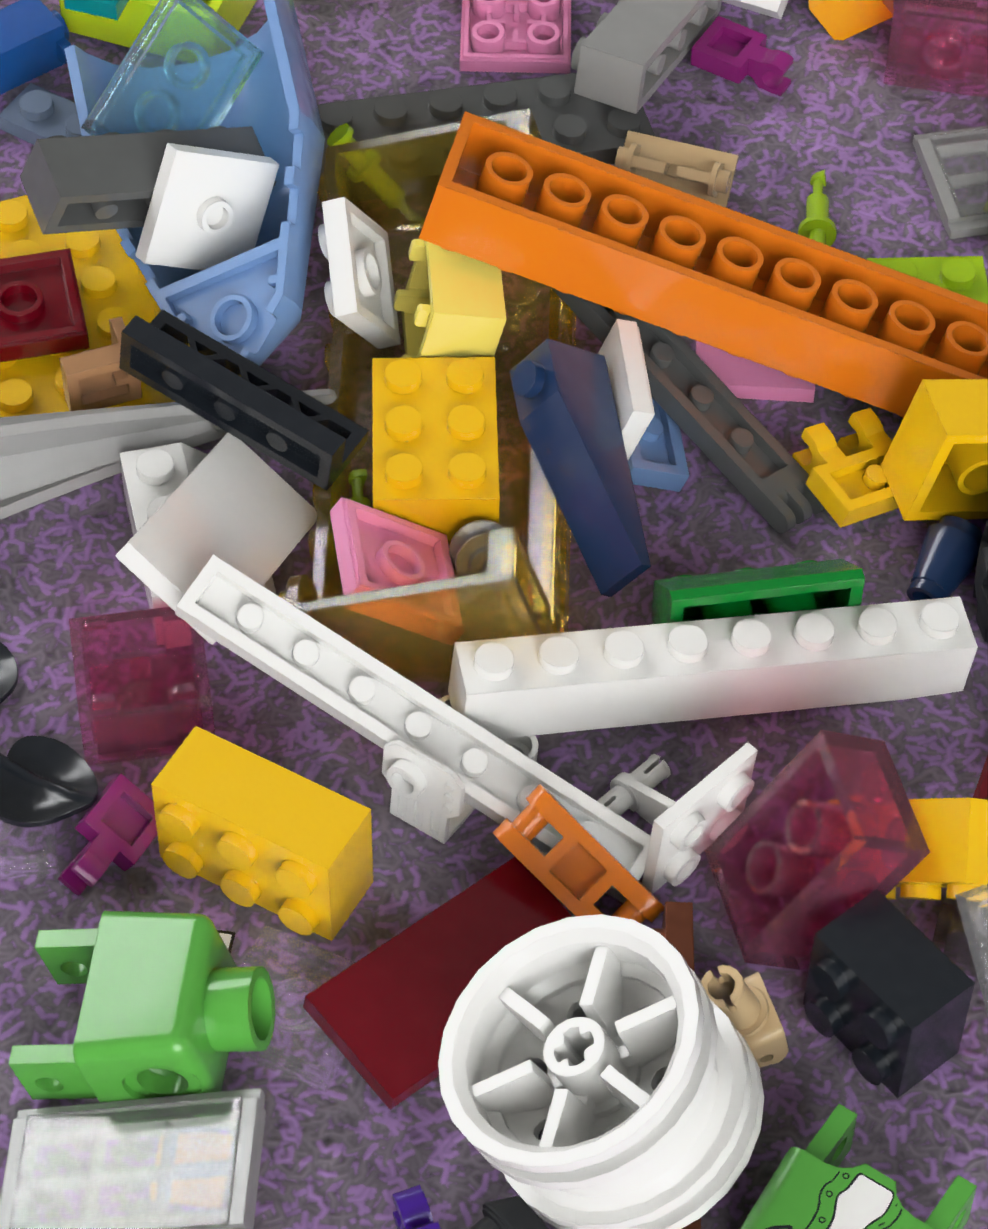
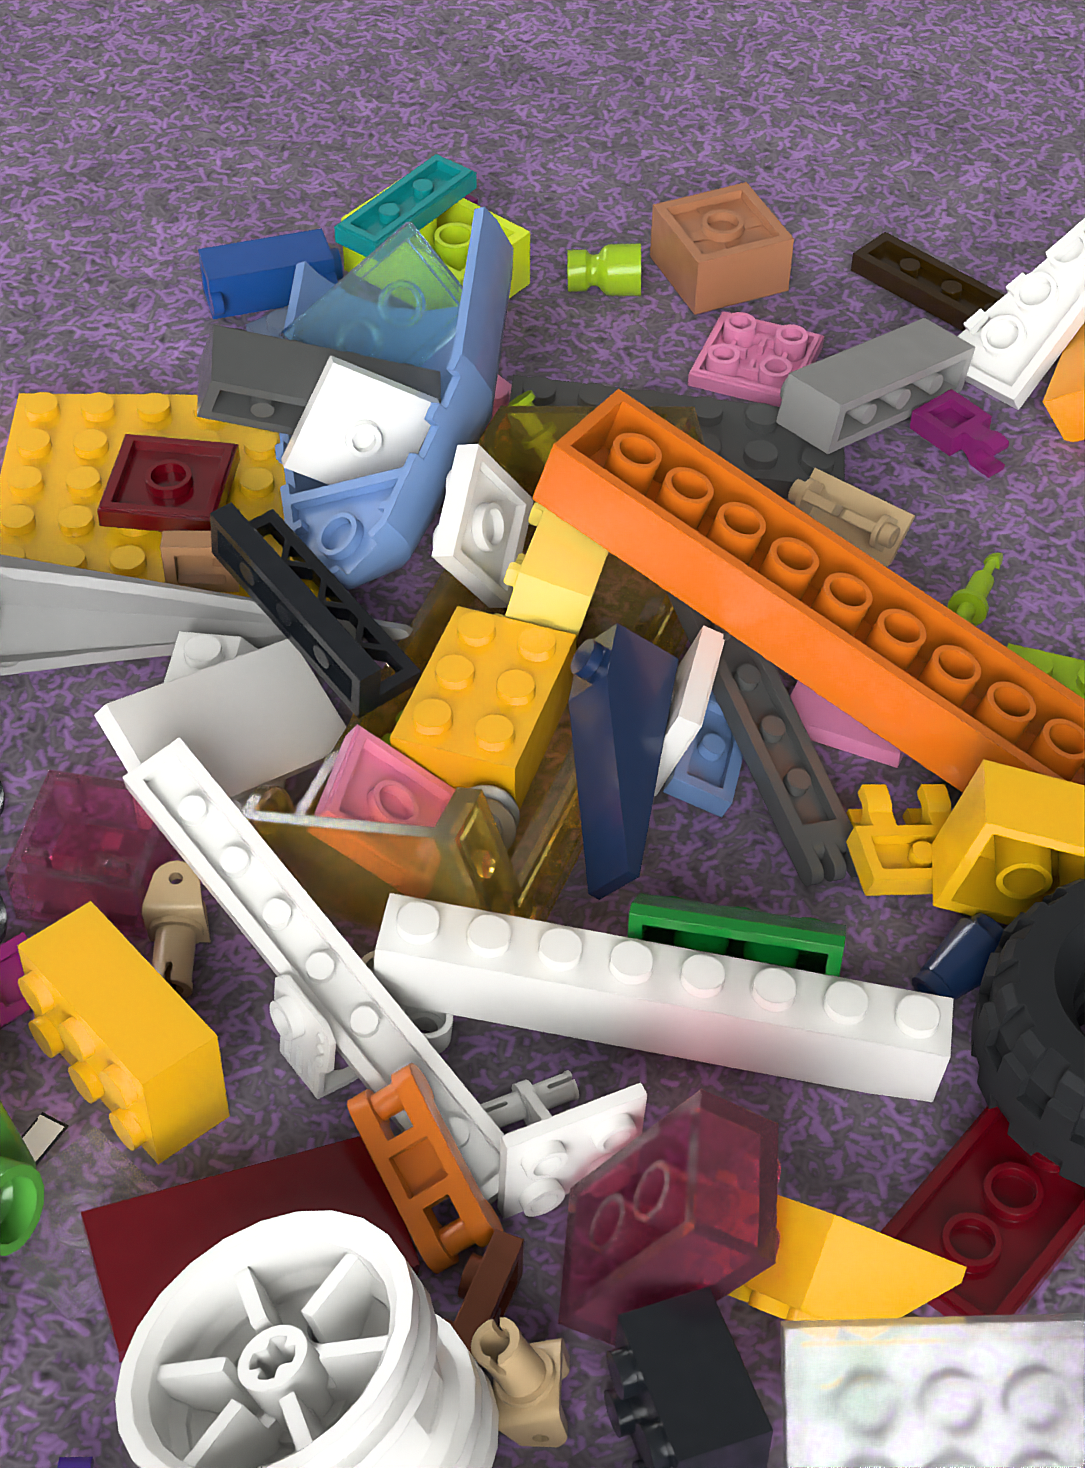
camera: 20 degrees right, 5 degrees down
(248, 715) = (175, 923): none -> tan piece

